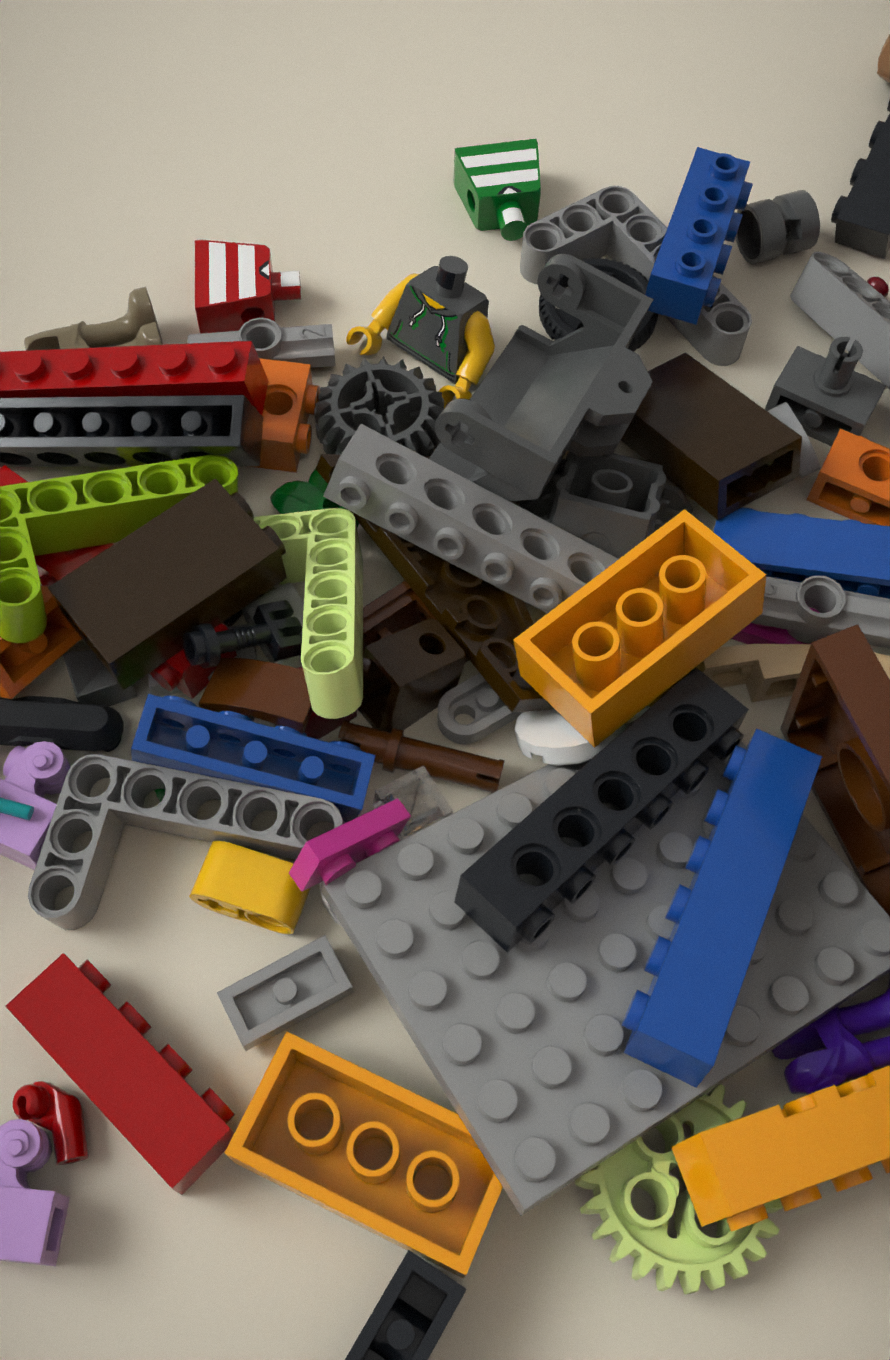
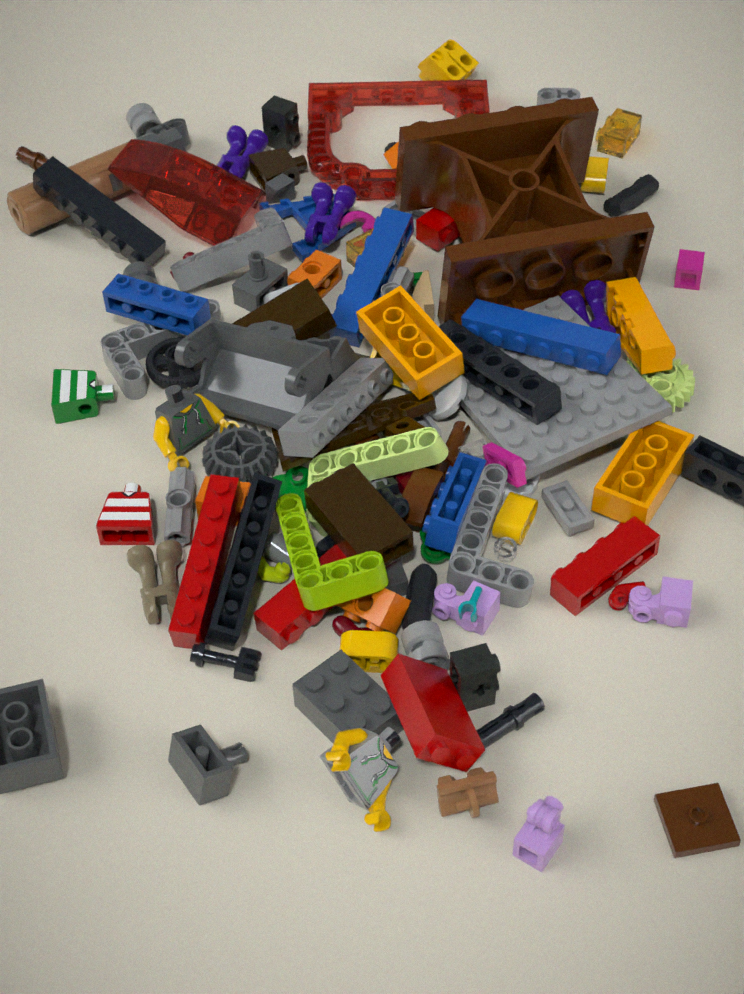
camera: 80 degrees left, 15 degrees down
(161, 871) = (508, 546): none -> clear hinge

